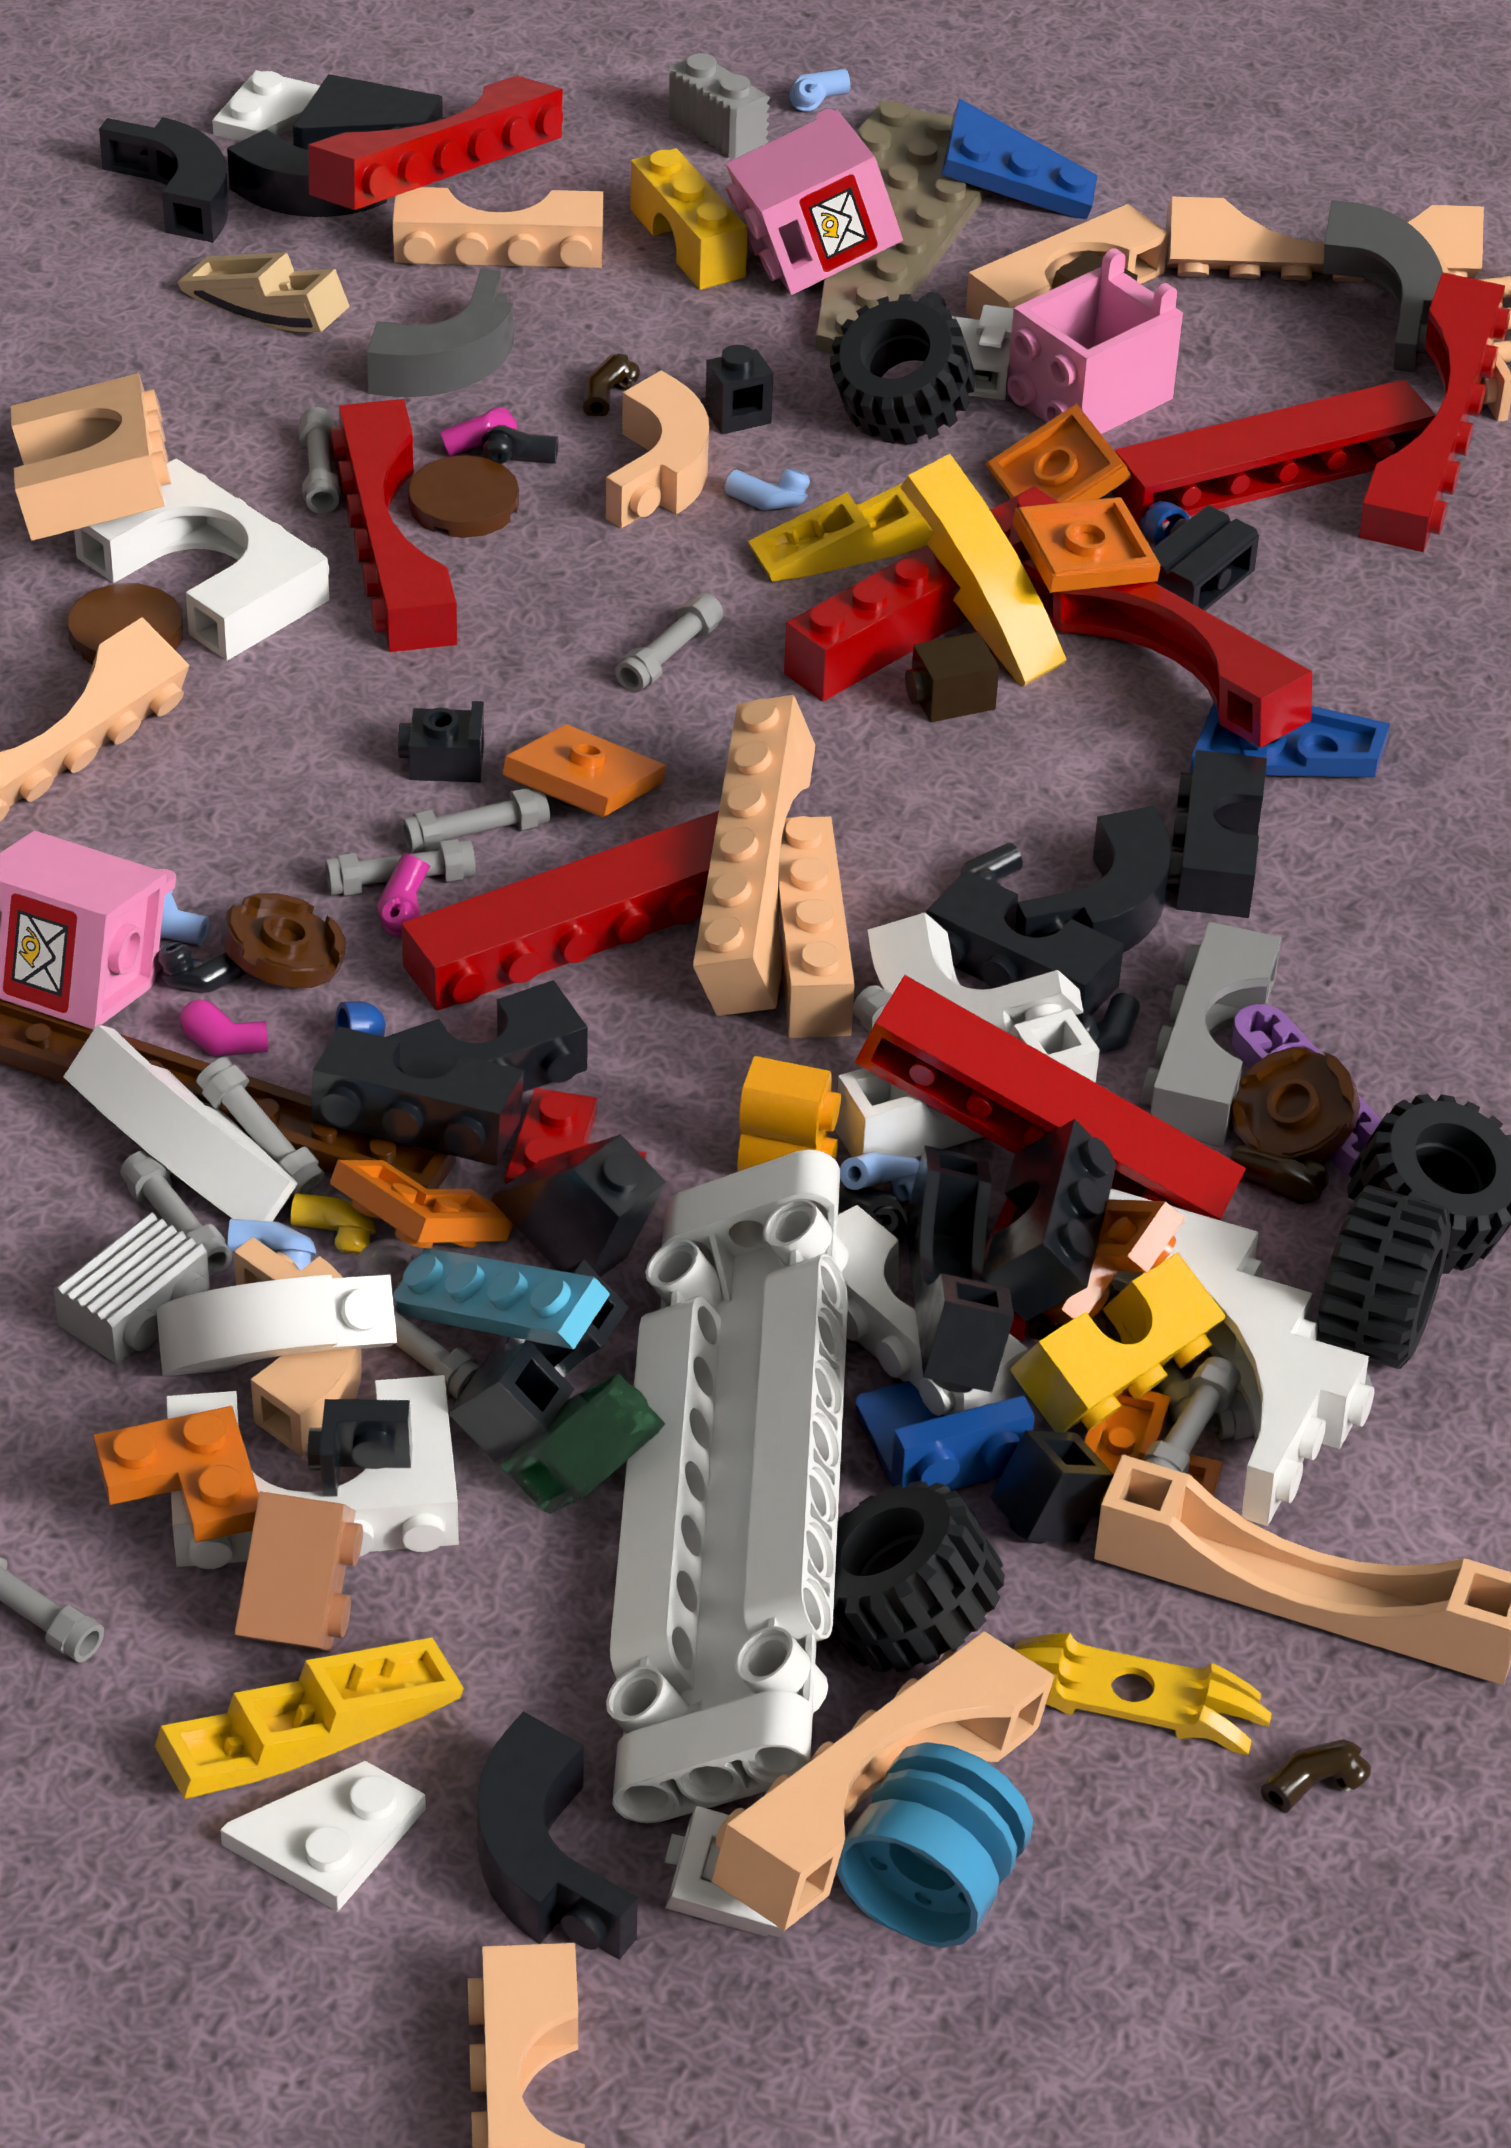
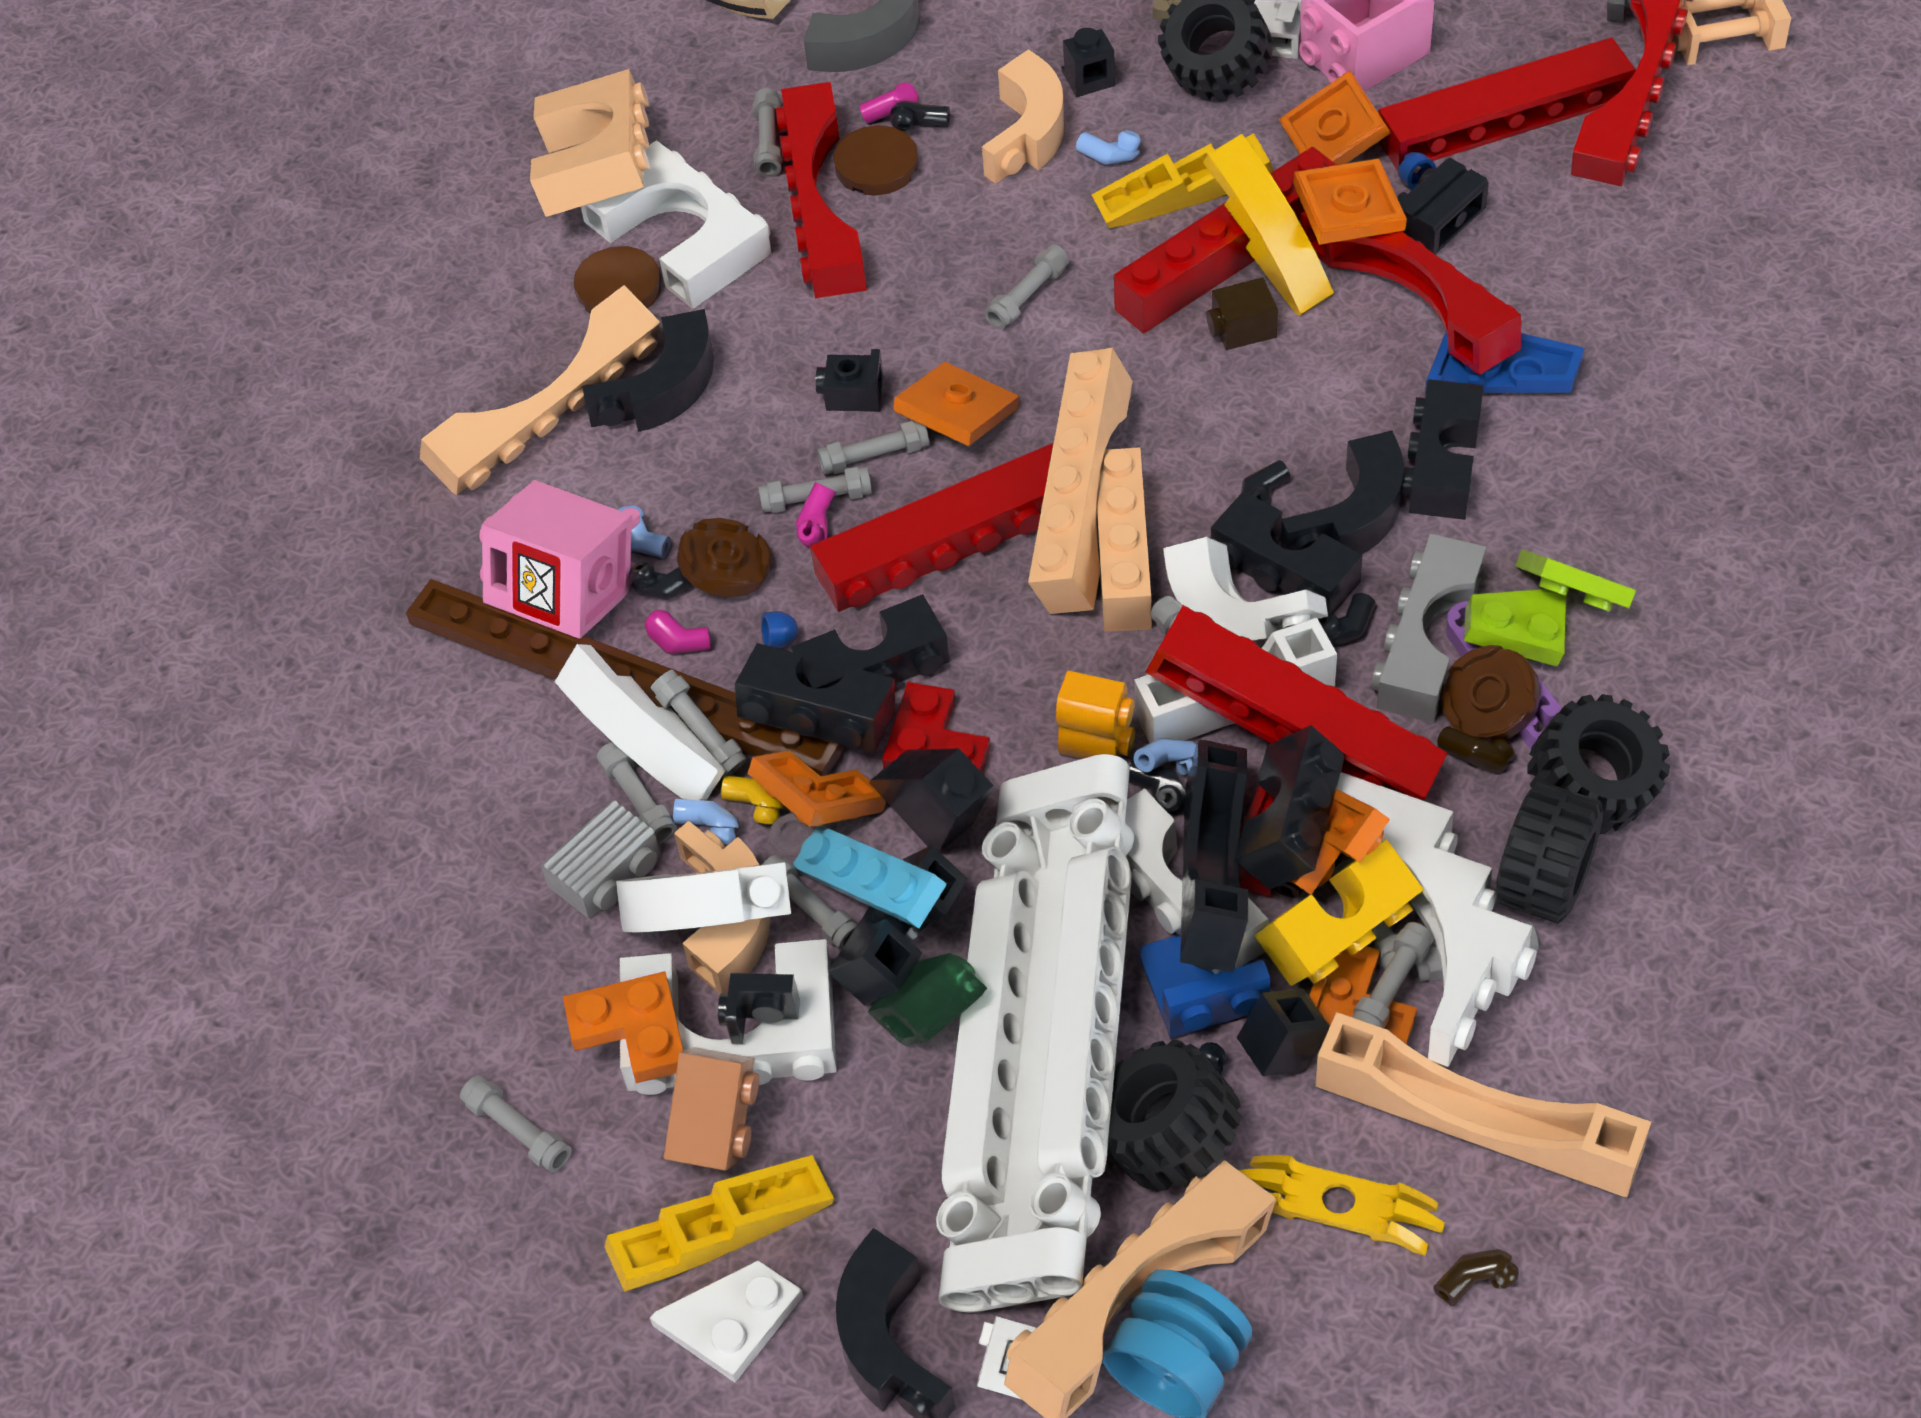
camera: 10 degrees right, 10 degrees up
(193, 746) = (665, 387): none -> black arch
(597, 385) = (981, 63): dark brown arm -> none
(1328, 1021) = (1519, 621): none -> lime wing
(1385, 974) = (1560, 577): none -> lime wing

